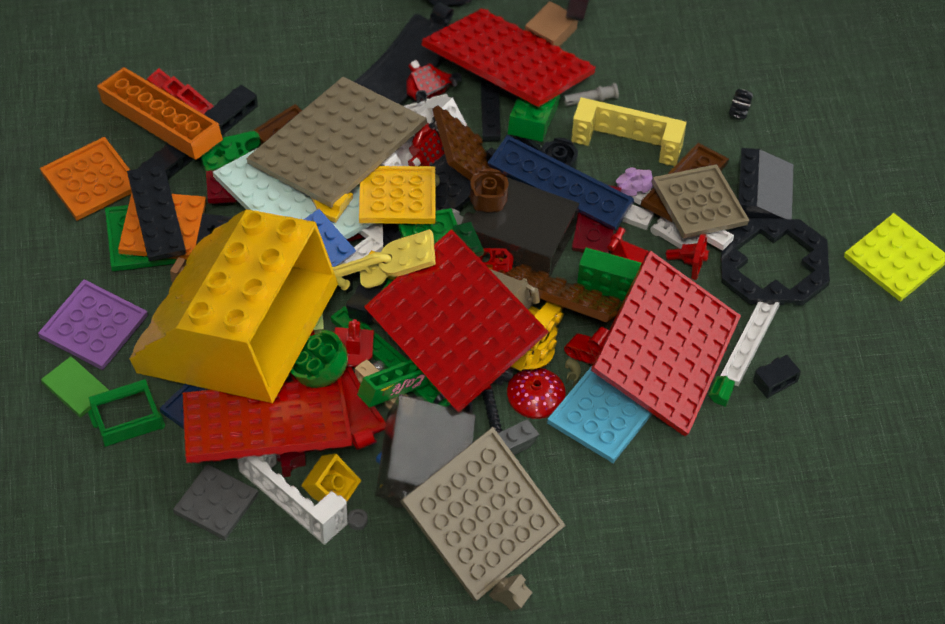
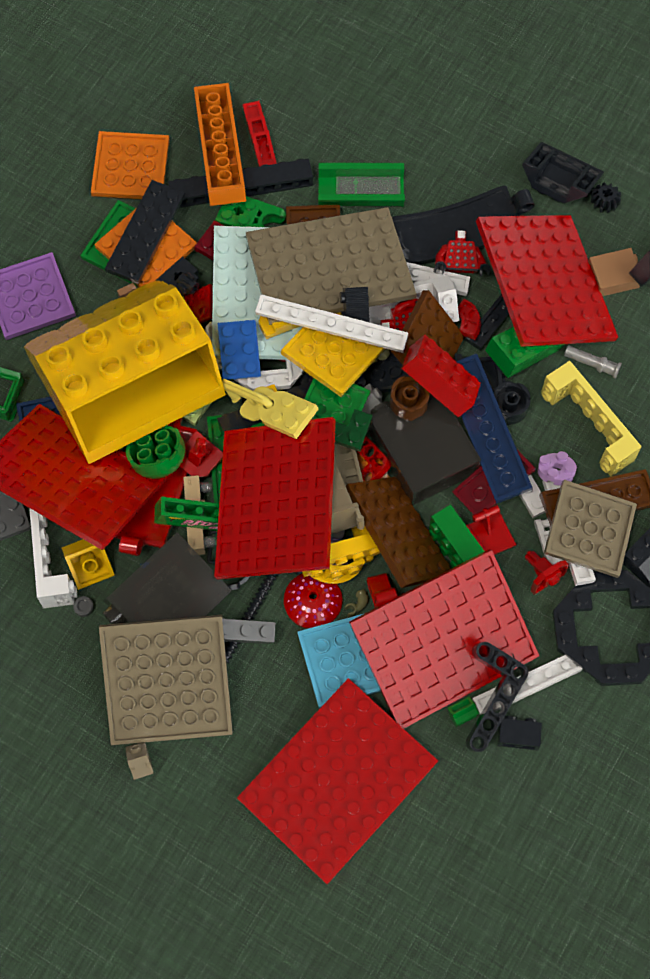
camera: 40 degrees right, 15 degrees up
(297, 80) = (361, 184): none -> green piece
(385, 170) = (331, 323): none -> white plate
(390, 150) = (355, 303): none -> black brick
(476, 122) = (470, 319): none -> red tile
(502, 156) = (441, 375): none -> red brick
(675, 500) = (337, 780): none -> red plate
(741, 357) = (498, 694): none -> black beam

